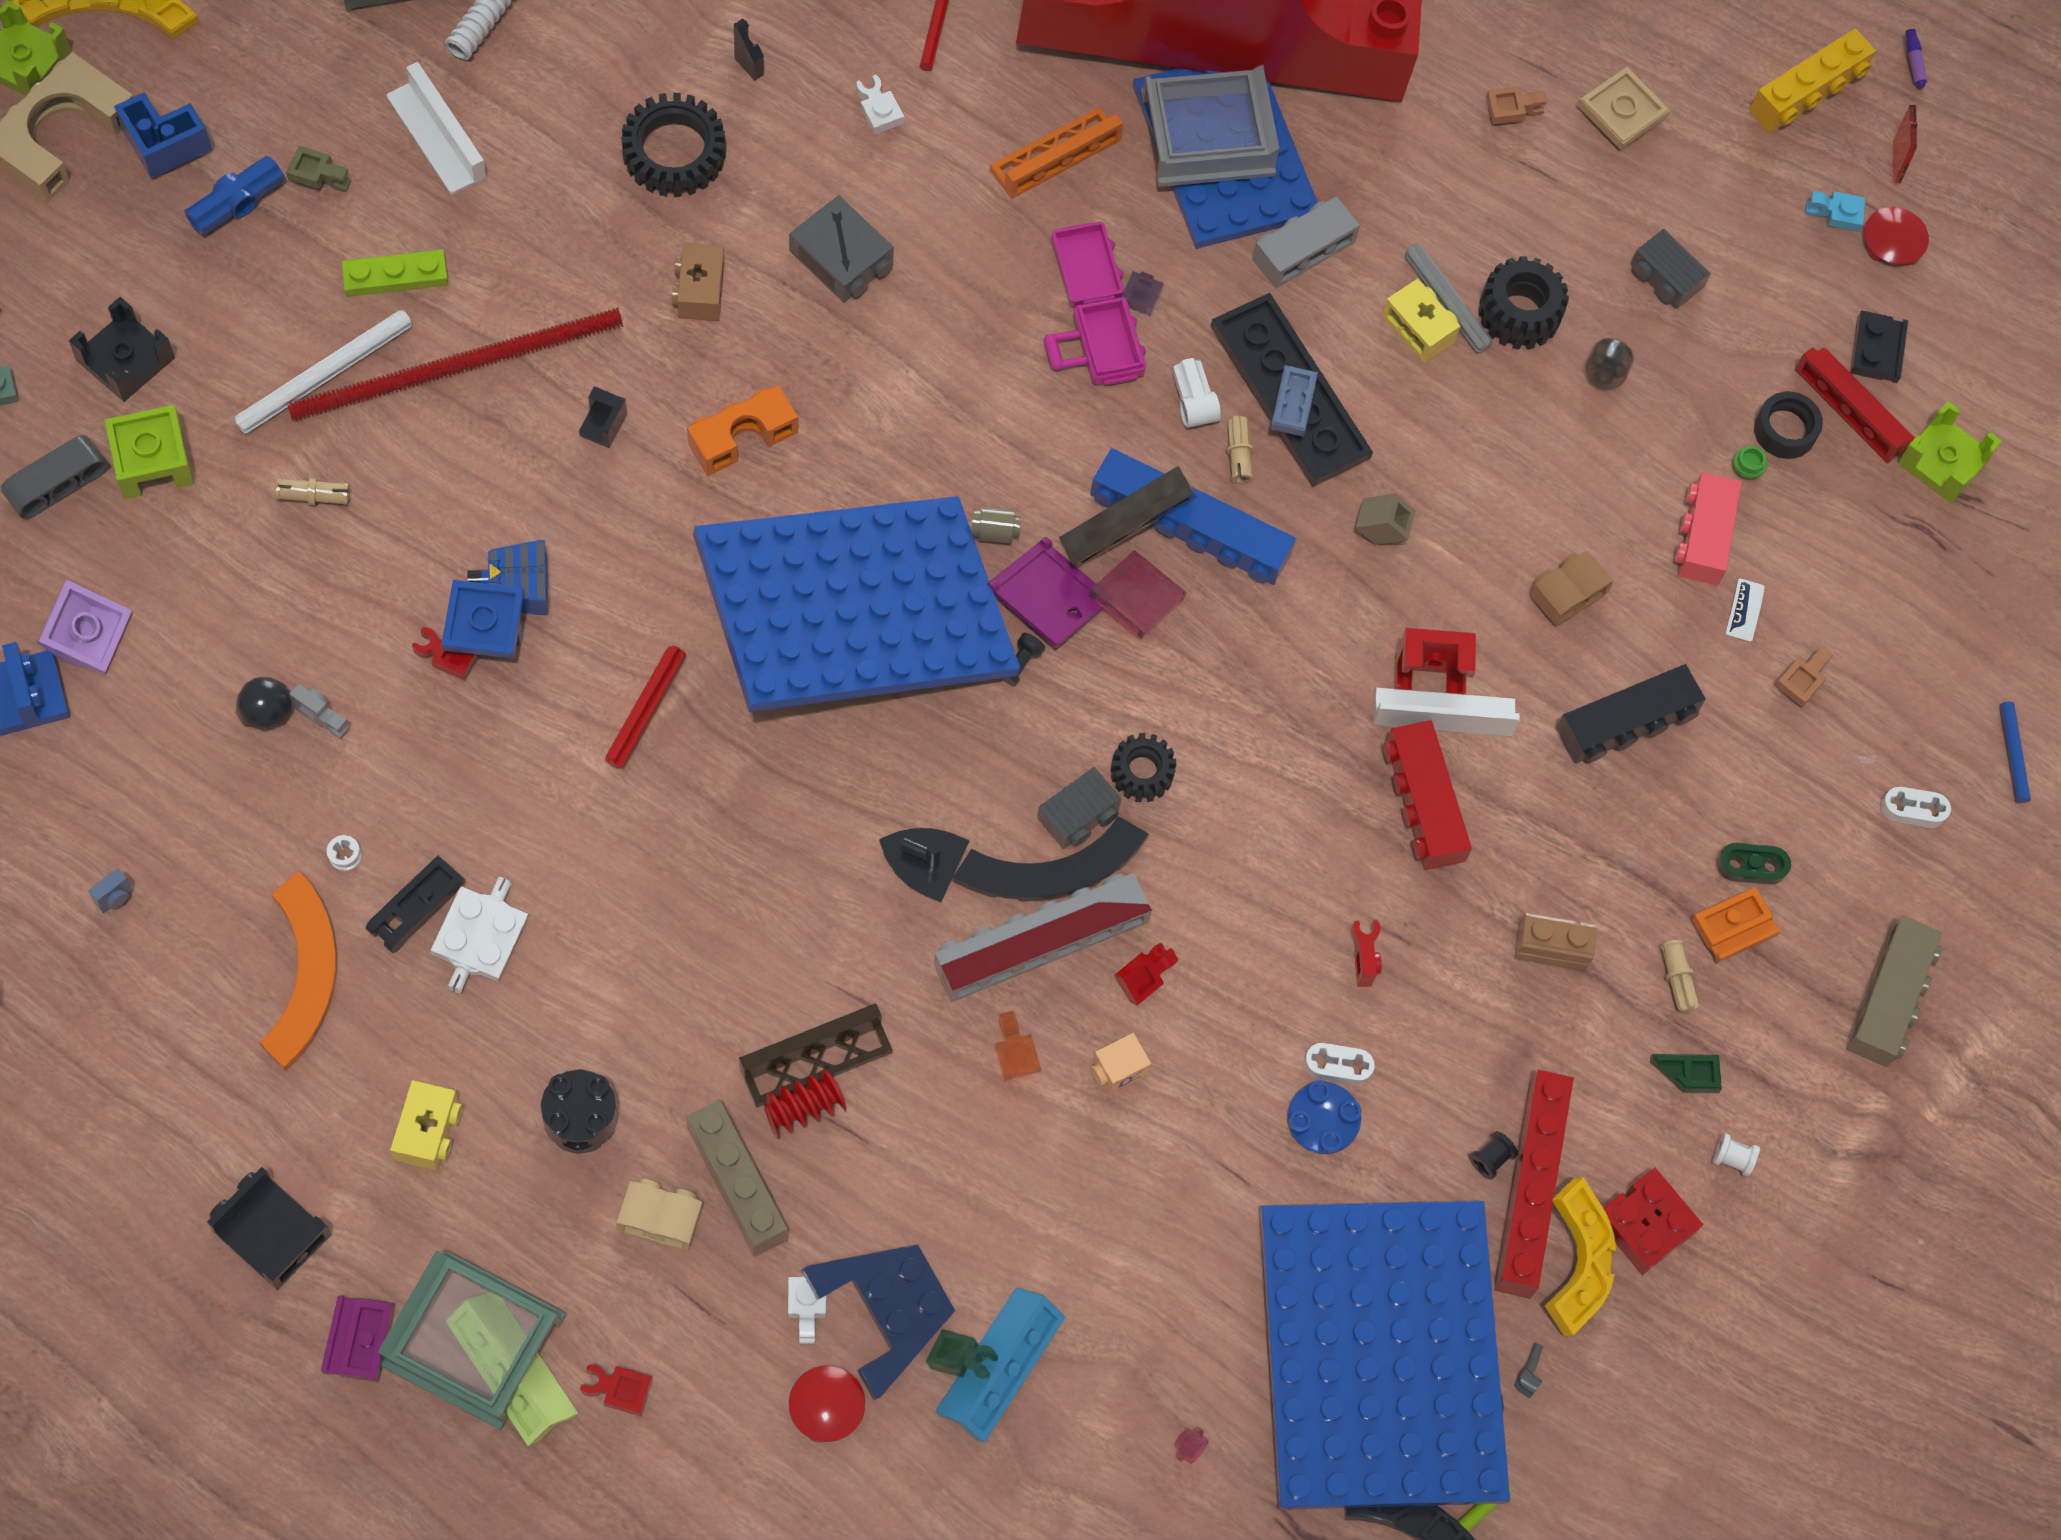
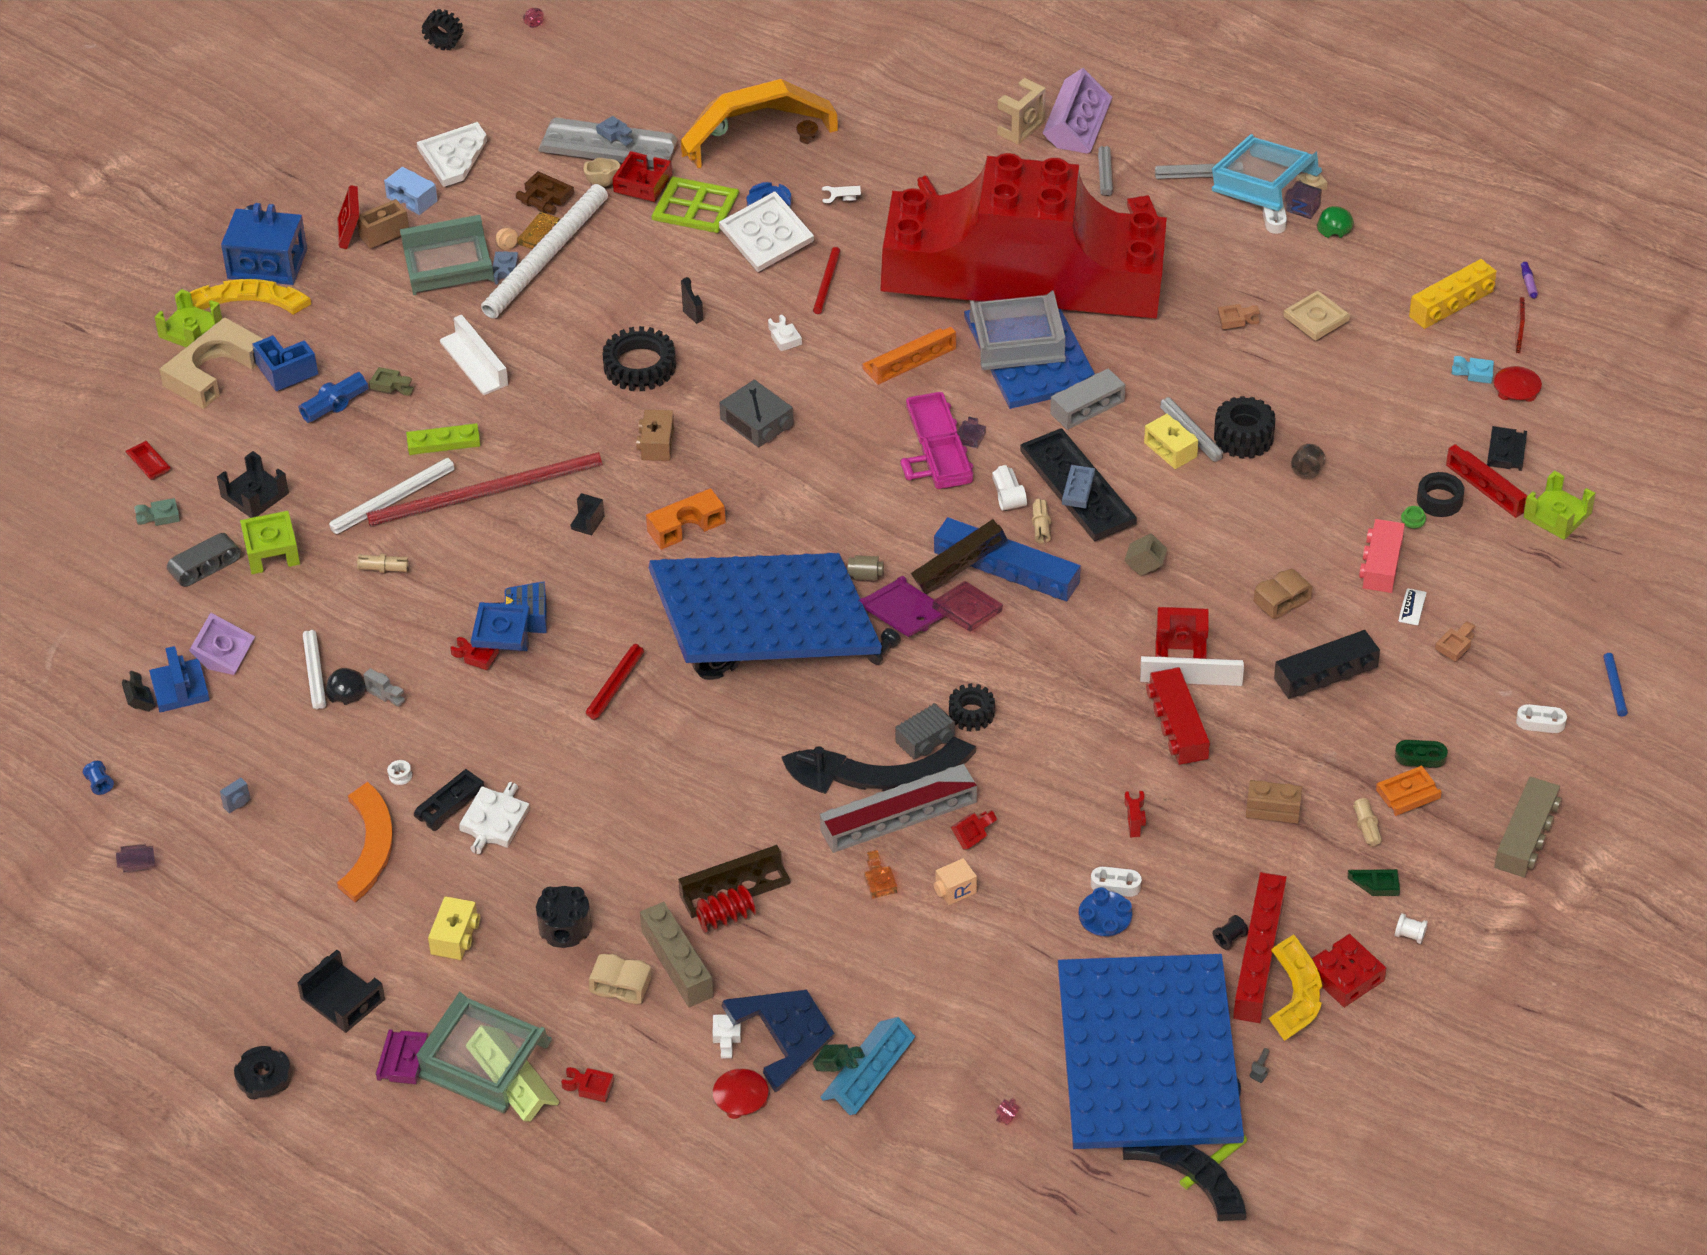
camera: 10 degrees right, 20 degrees down
(172, 1340) = (262, 1085): none -> black plate
(218, 672) = (314, 669): none -> white axle
(1669, 269) = (1351, 405): dark grey brick -> none

